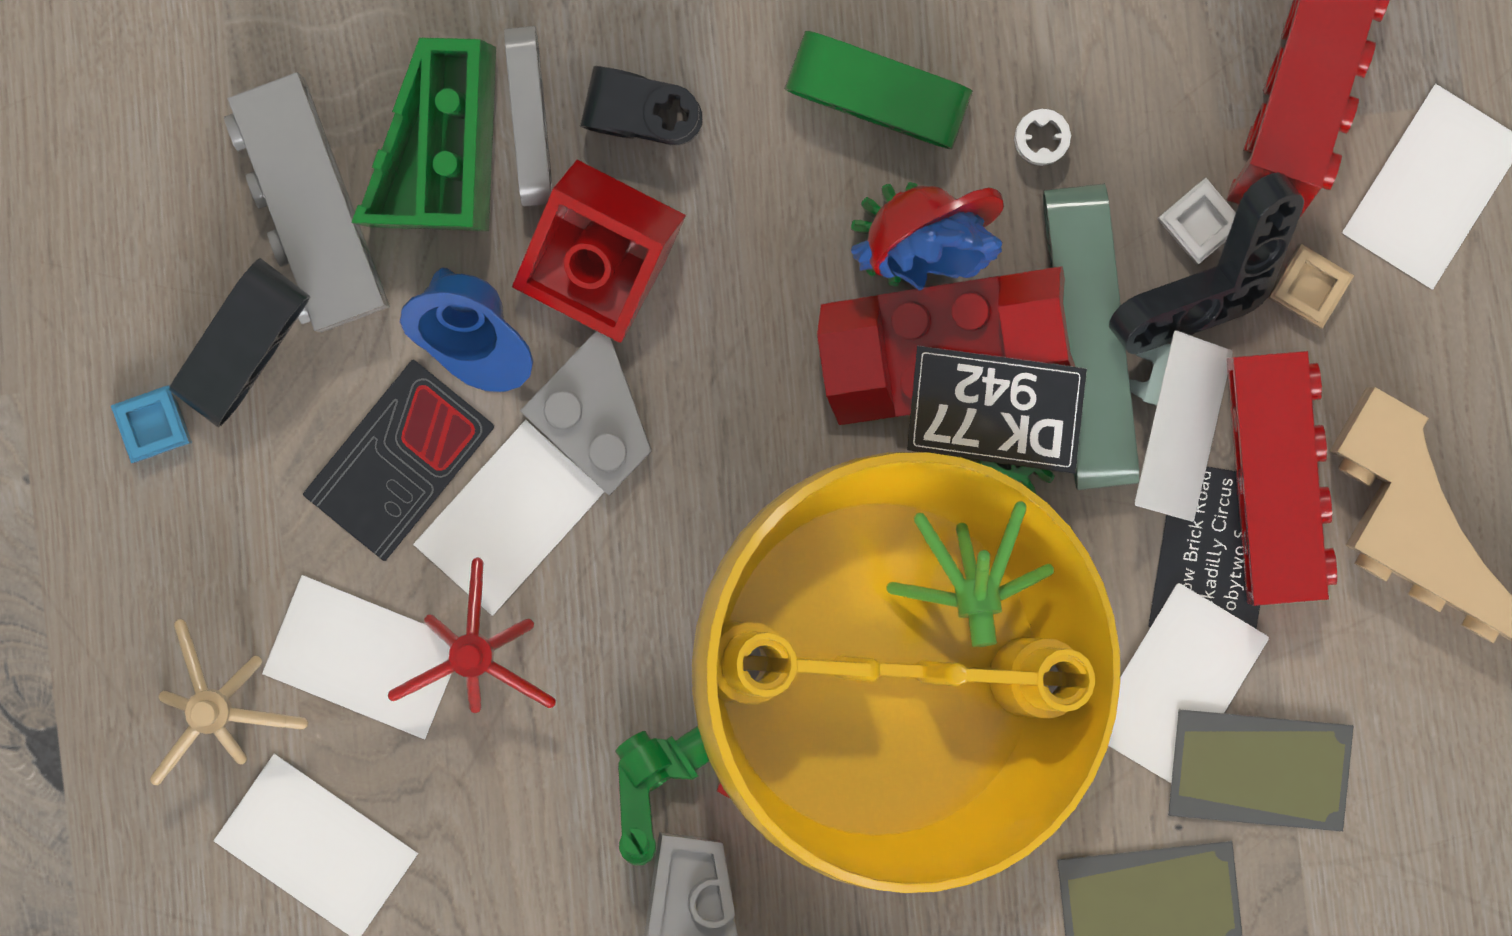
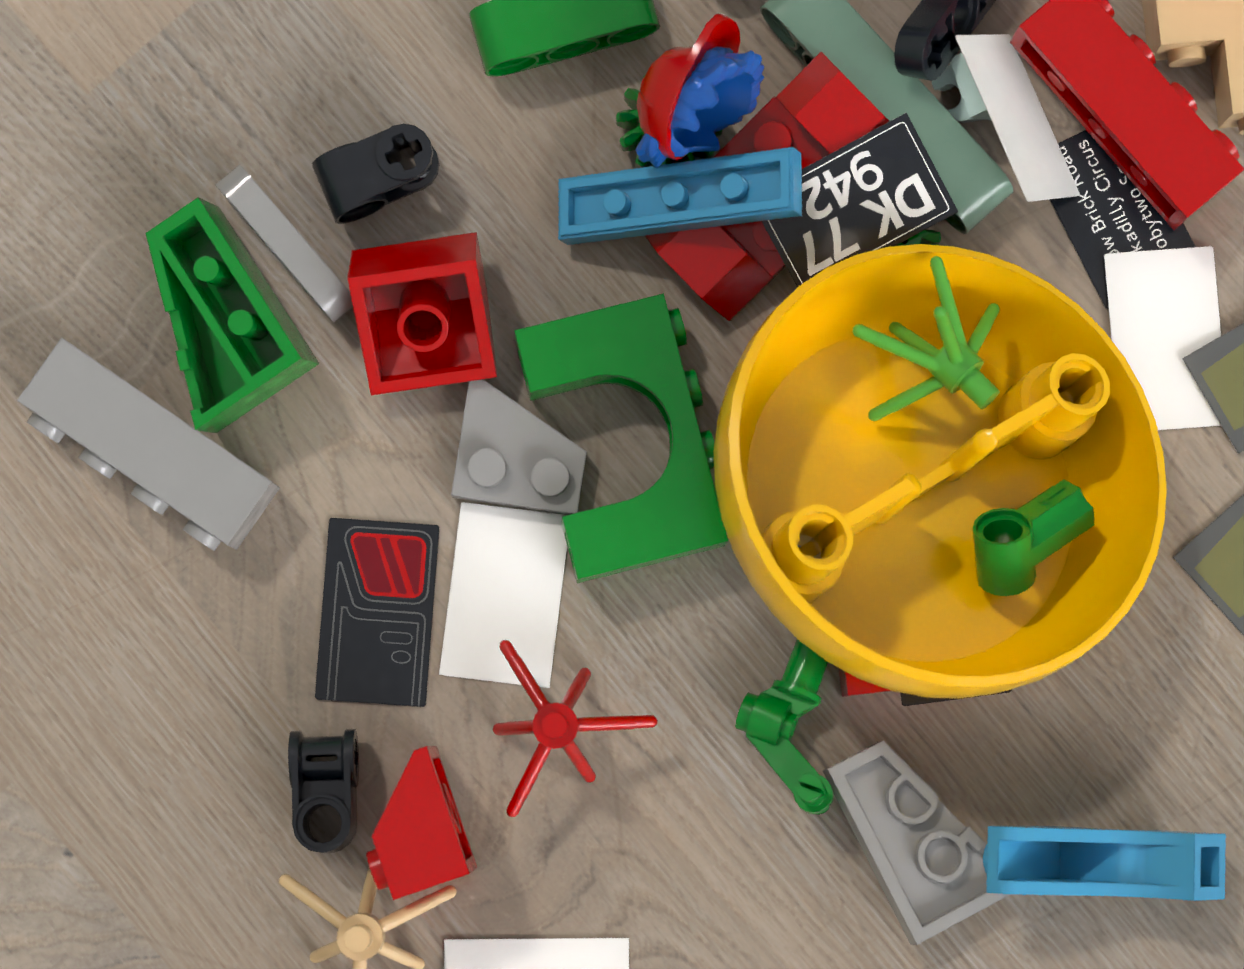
camera: 40 degrees left, 5 degrees down
(151, 424) = (143, 729): dark azure tile -> none
(239, 342) = (169, 600): black beam -> none
(261, 569) = (324, 784): none -> black piece
(310, 665) = (420, 831): none -> red slope
(357, 655) = (483, 783): white sticker -> none
(466, 332) = (361, 460): blue piece -> none
(750, 401) = (639, 350): none -> green arch
(865, 304) = (681, 196): none -> dark azure tile
(930, 766) = (1015, 541): none -> green piece

